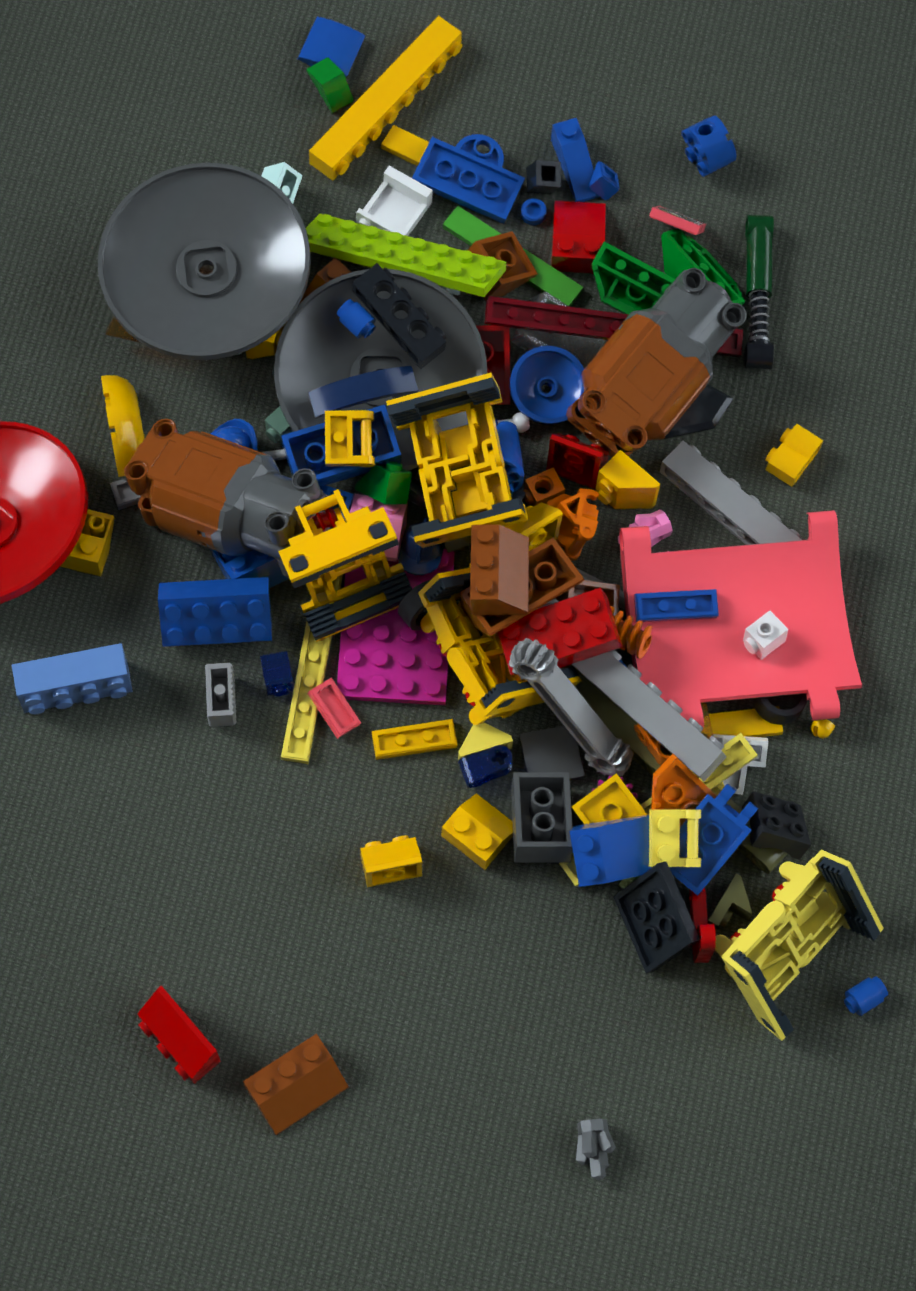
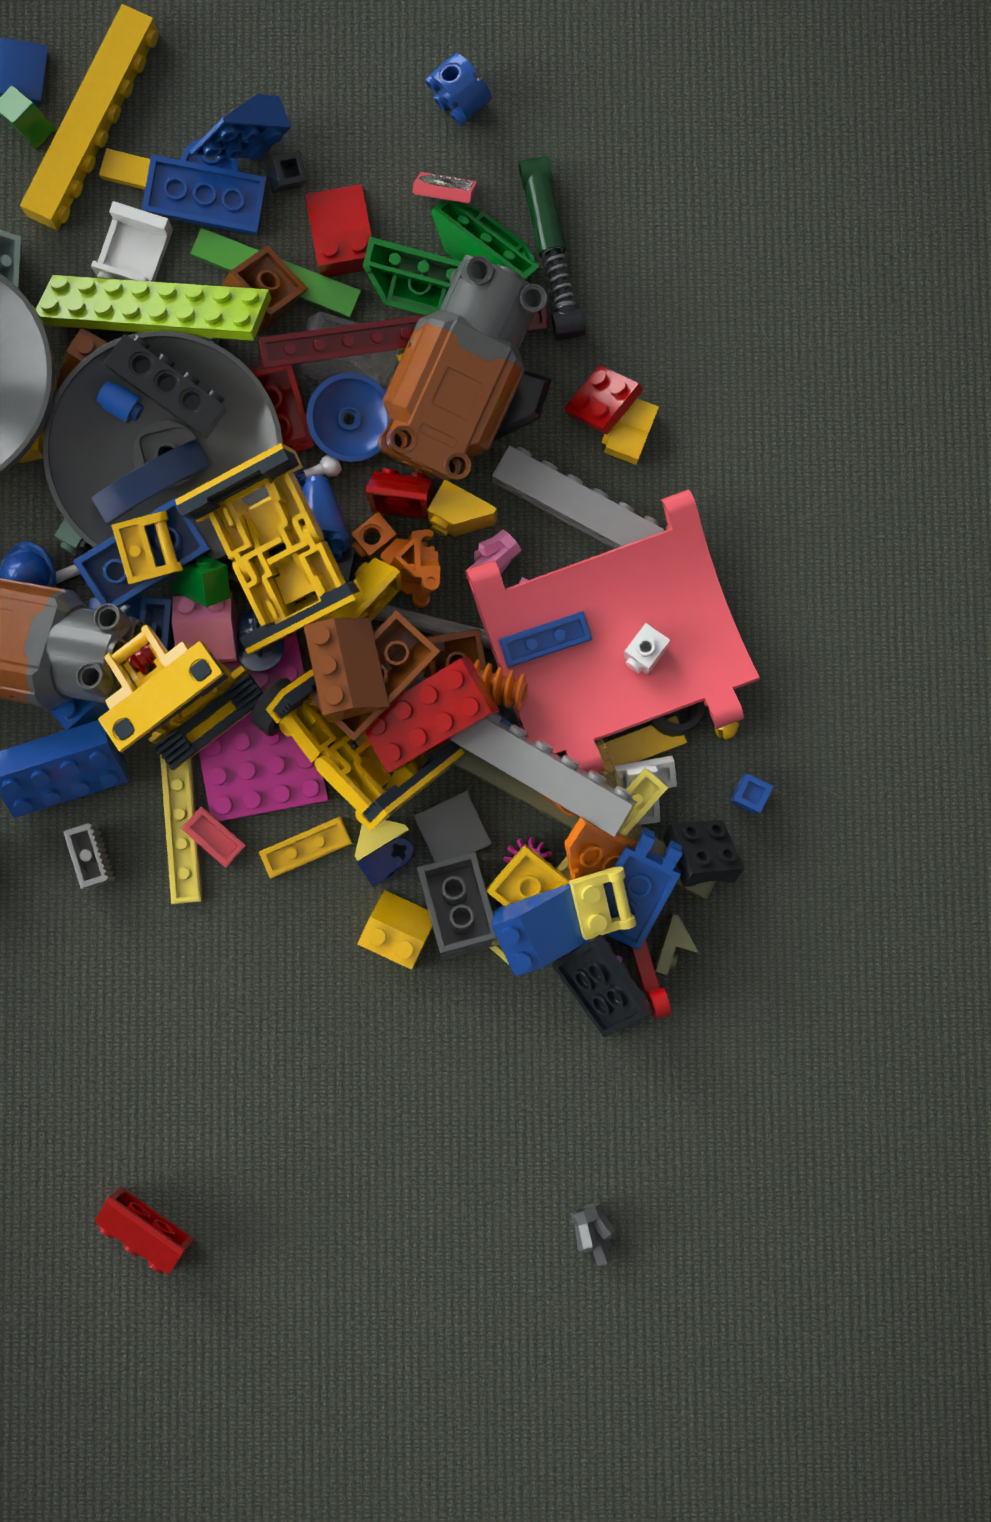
camera: 15 degrees left, 15 degrees up
(277, 674) = (143, 815): clear blue brick -> none
(296, 1084) = (276, 1247): dark orange slope -> none
(391, 861) = (312, 989): yellow slope -> none
(518, 135) = (246, 130): none -> blue slope
(533, 212) = (285, 213): blue tile -> none
(540, 668) = (423, 770): light grey arm -> none
(574, 158) = (317, 142): blue slope -> none
(604, 181) = (354, 158): blue slope -> none
(775, 423) = (603, 399): none -> red plate
(794, 930) = (755, 939): light yellow container -> none
(831, 787) = (751, 794): none -> blue brick
(865, 995) = (832, 1005): blue brick -> none

